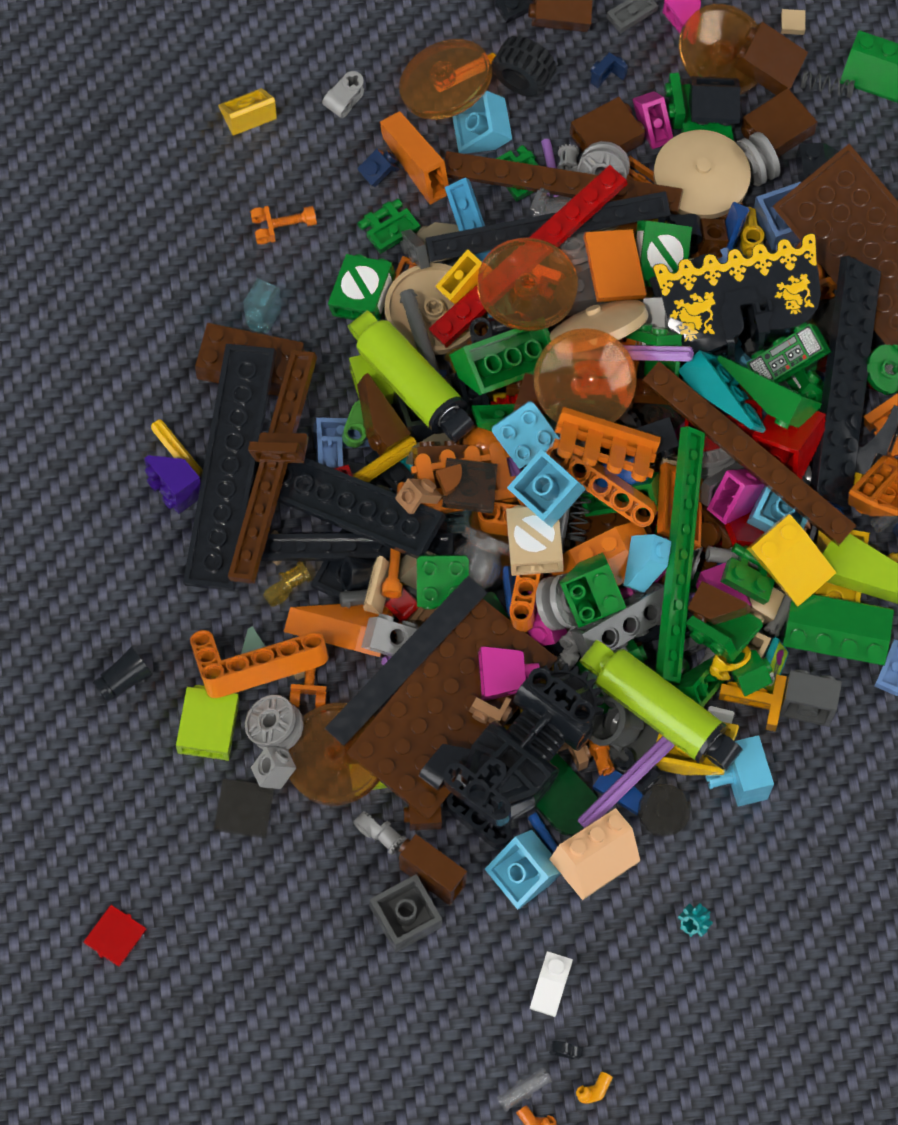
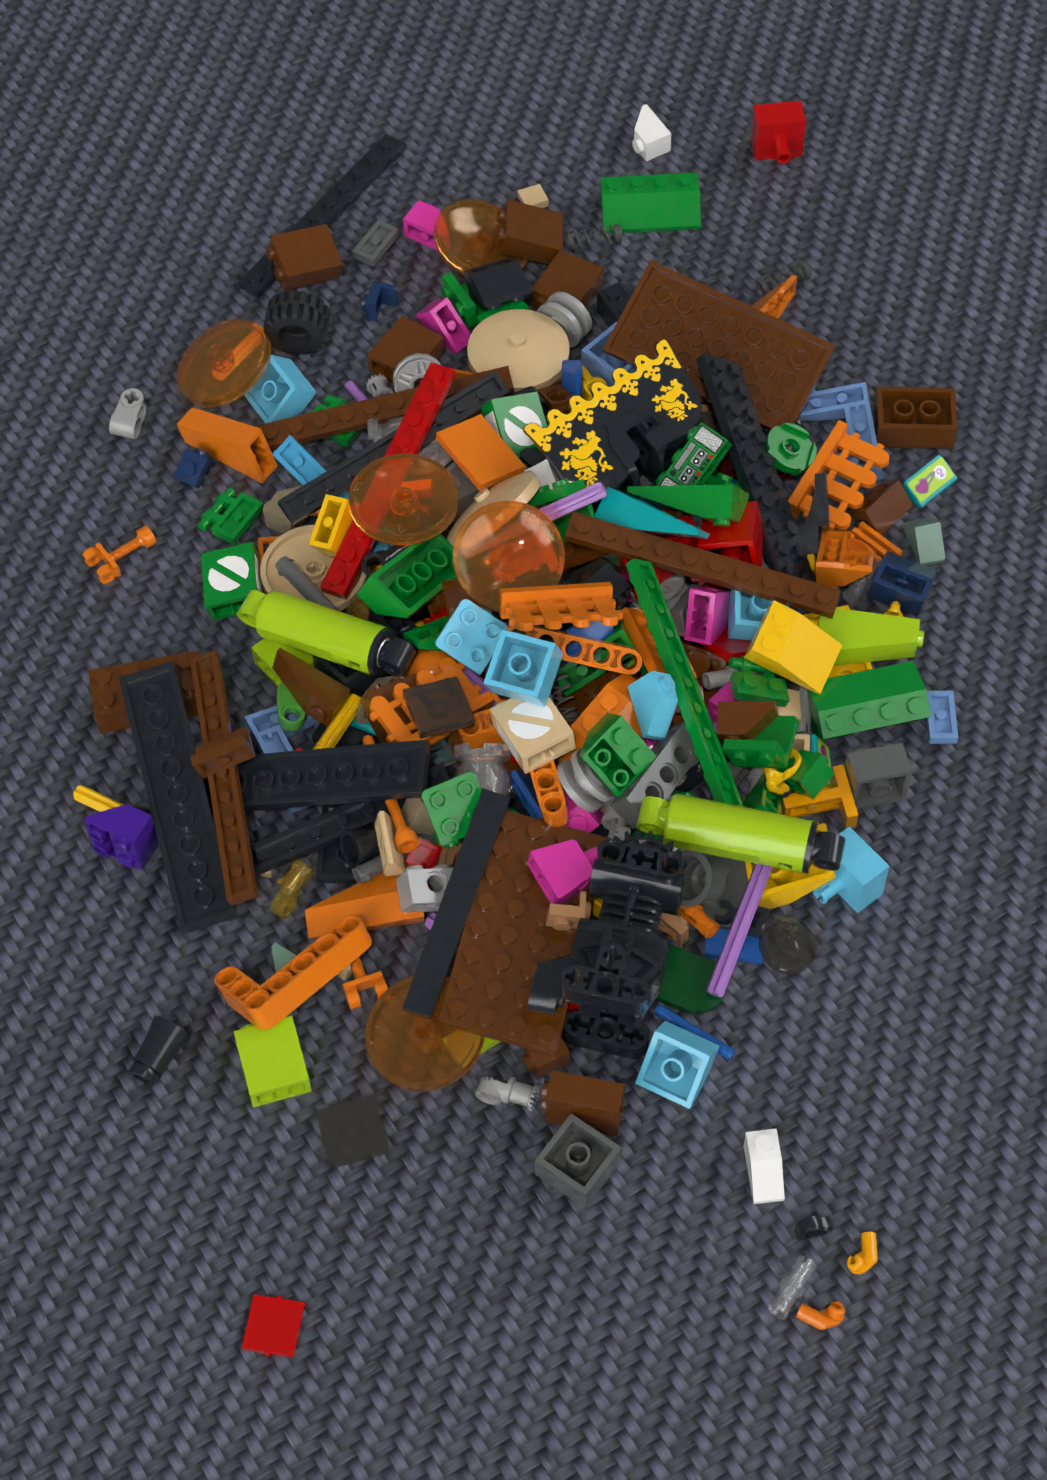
camera: 20 degrees left, 10 degrees down
(248, 111) = (38, 466): yellow slope -> none
(262, 306) = (137, 633): clear light blue brick -> none
(273, 767) = (365, 1073): light grey brick -> none
(274, 723) = (344, 1030): light grey wheel -> none
(415, 249) = (269, 522): dark grey plate -> none
(417, 492) = (388, 732): medium nougat bracket -> none
(449, 478) = (416, 706): dark orange tile -> none
(597, 854) = (745, 1014): light nougat slope -> none
(695, 920) = (870, 1040): teal gear -> none

